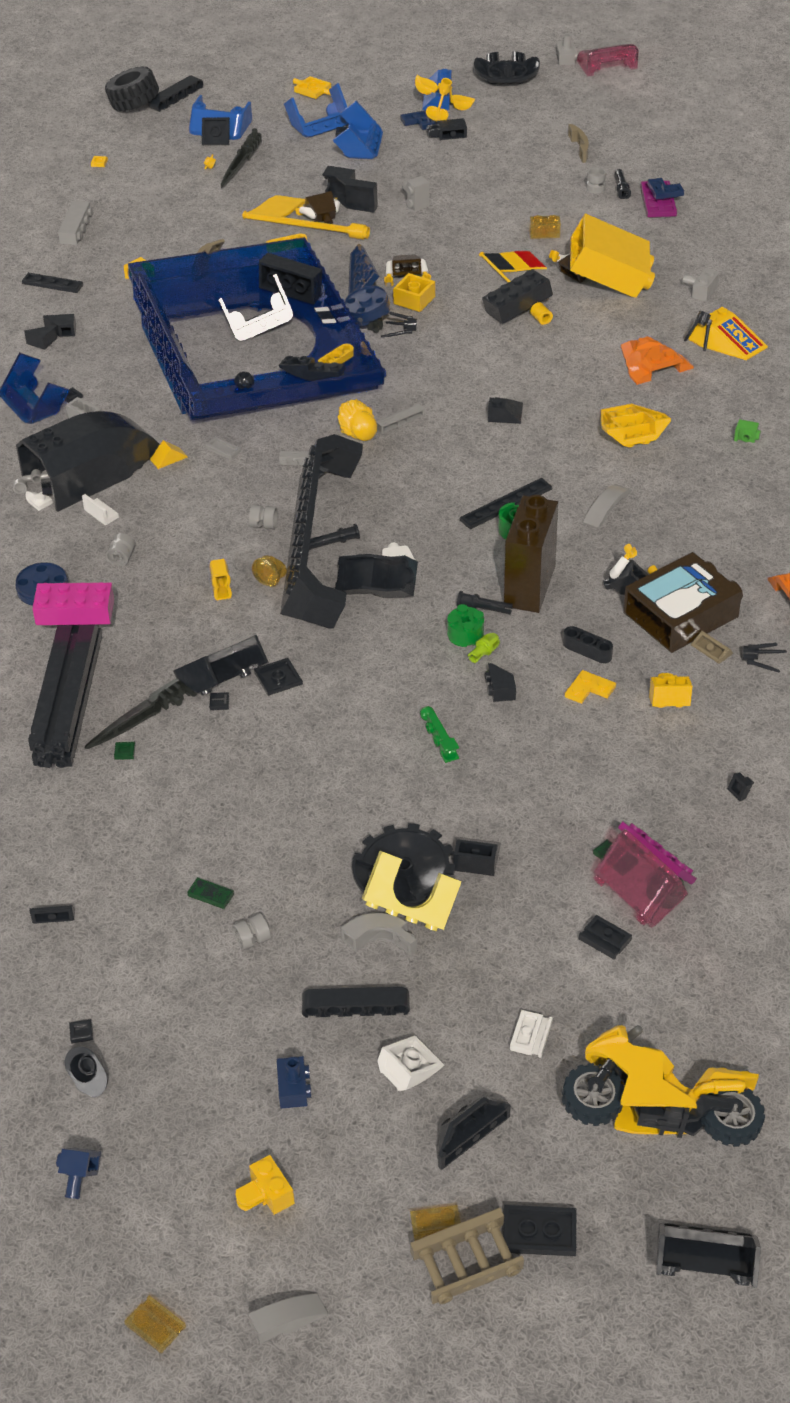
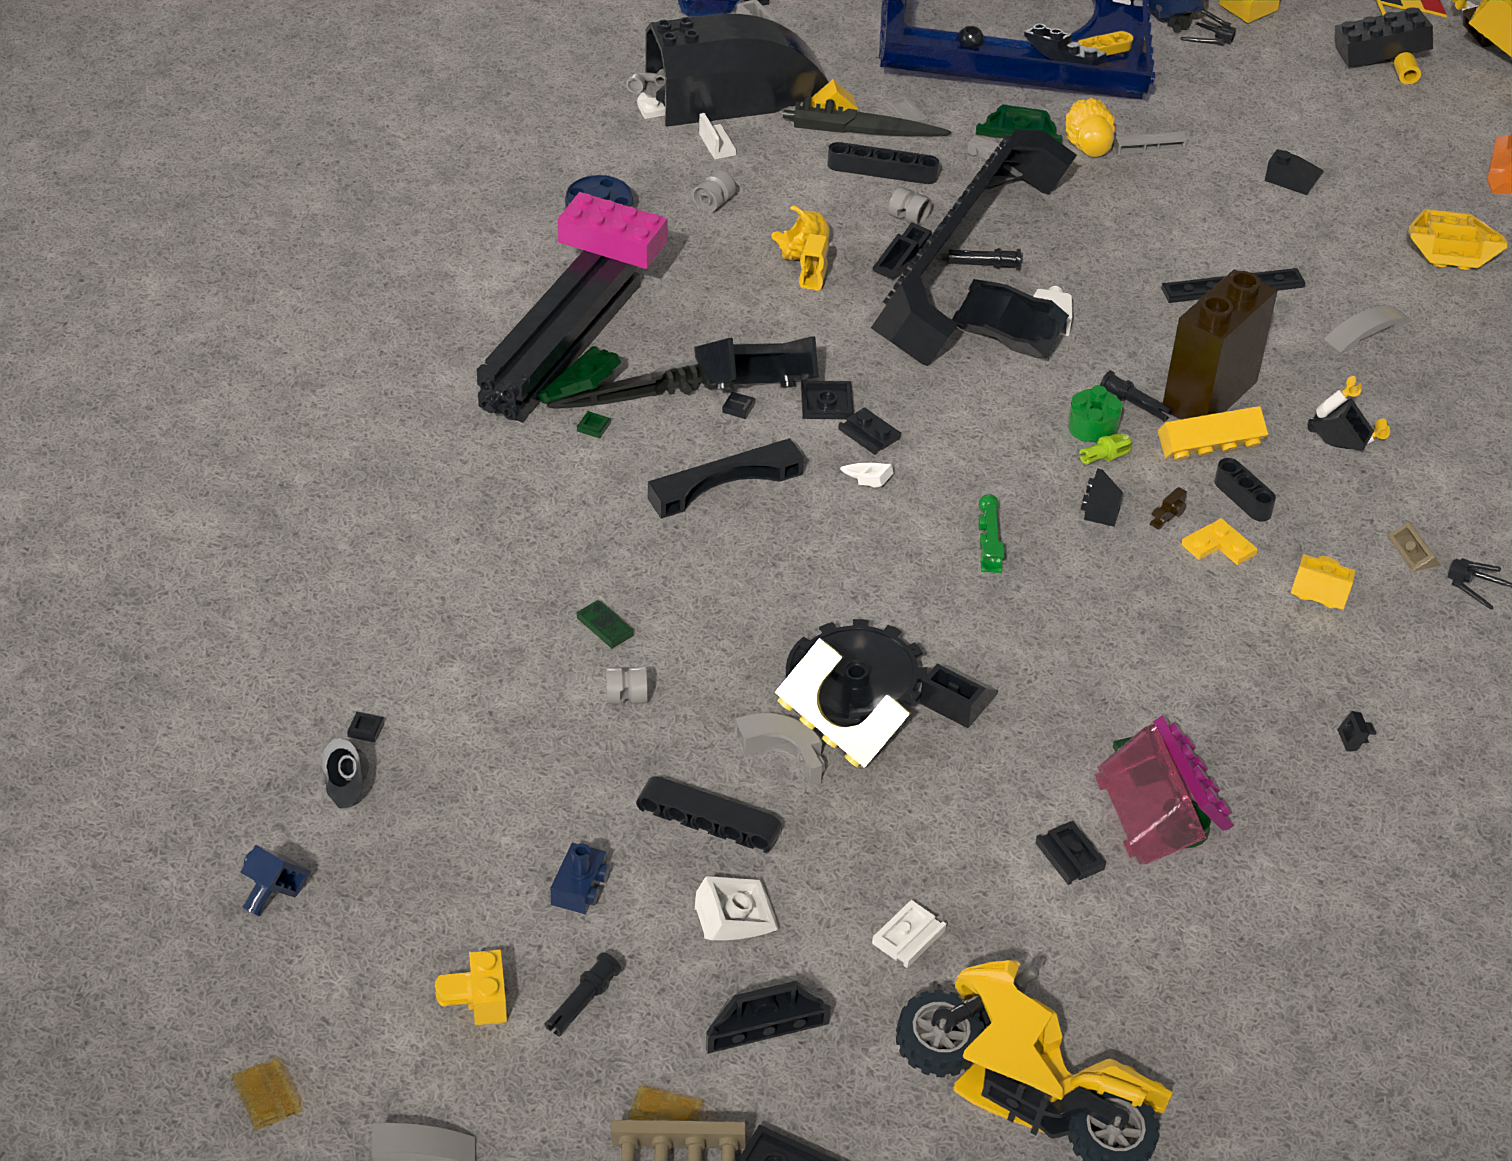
camera: 20 degrees right, 0 degrees up
(52, 914) = (405, 581): black slope -> none
(100, 716) = (582, 375): none -> dark green wing
(189, 466) = (853, 121): none -> pearl dark grey piece
(199, 562) = (794, 239): none -> yellow hair
(227, 490) = (883, 163): none -> black beam
(266, 734) = (770, 462): none -> black arch
(268, 570) = (880, 270): clear yellow piece -> none
(278, 543) = (902, 251): none -> black slope
(305, 432) = (1009, 118): none -> dark green wing
(319, 688) = (869, 431): none -> black plate
(335, 719) = (869, 473): none -> white plate
(340, 1153) = (591, 984): none -> black pin
(547, 612) = (1212, 433): none -> yellow brick
(548, 672) = (1172, 506): none -> dark brown plate
(682, 601) = (1401, 475): dark brown brick -> none

